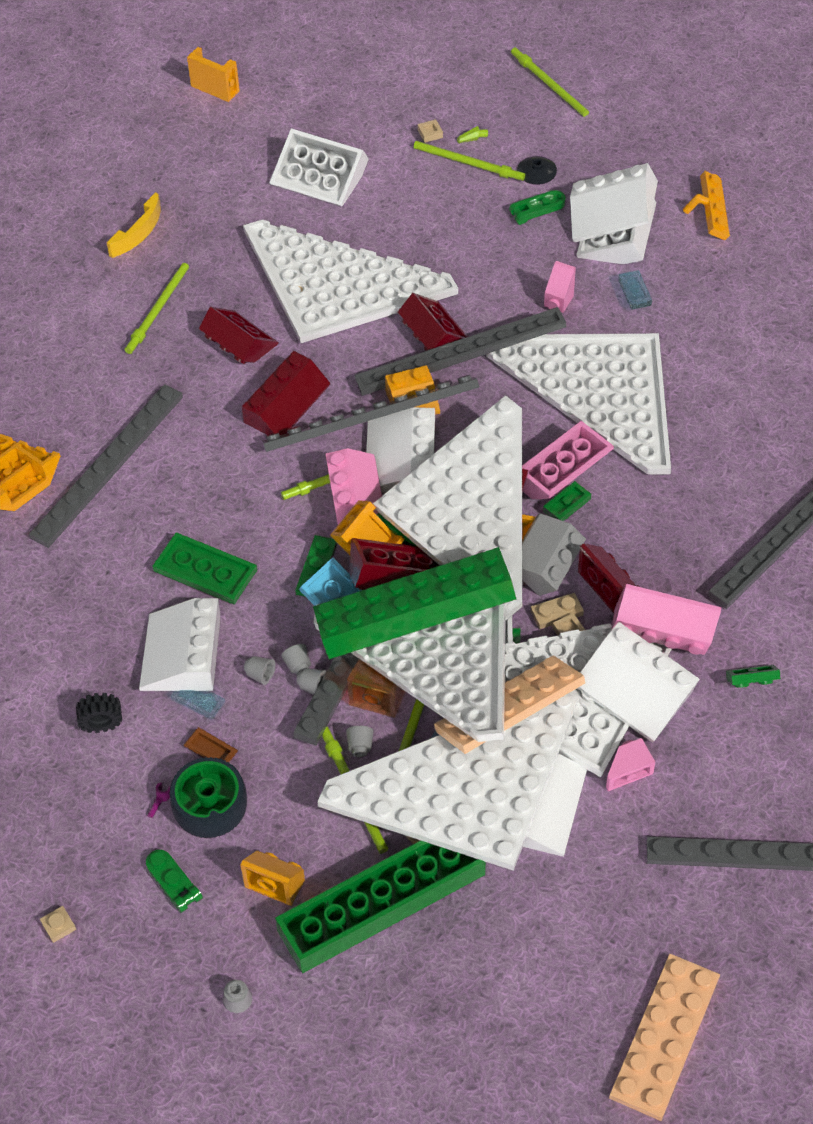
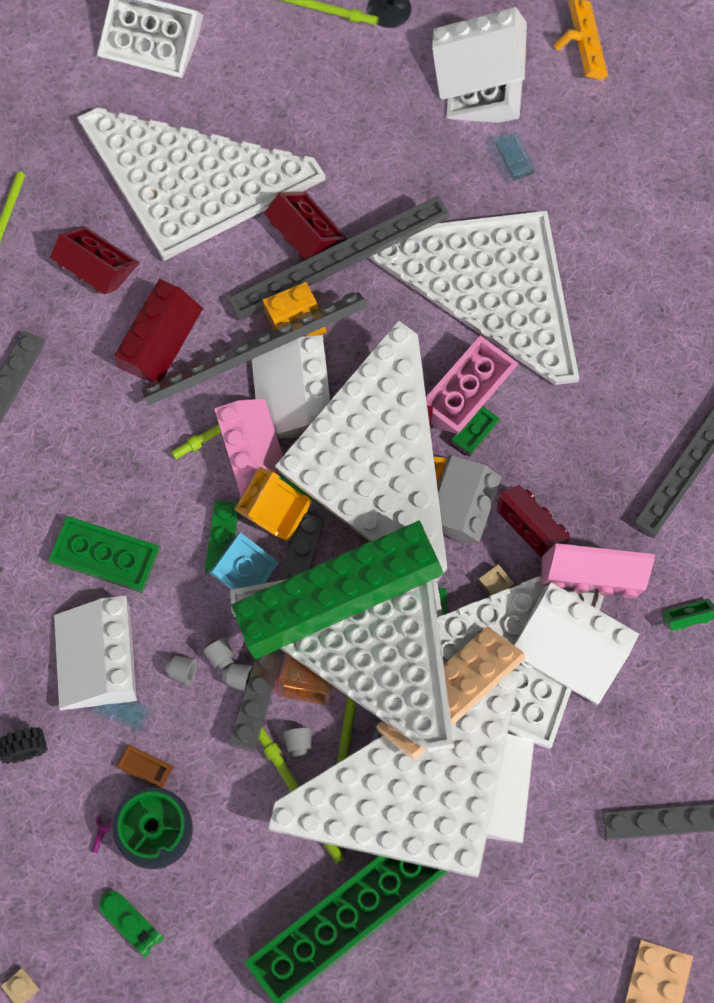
camera: 10 degrees left, 15 degrees up
(272, 876) = (233, 908): light orange slope -> none
(383, 562) = (305, 538): dark red slope -> none
(537, 206) = (397, 58): green plate -> none
(555, 609) = (480, 561): tan plate -> none
(560, 286) = (435, 165): bright pink slope -> none
(630, 764) = (577, 732): bright pink slope -> none

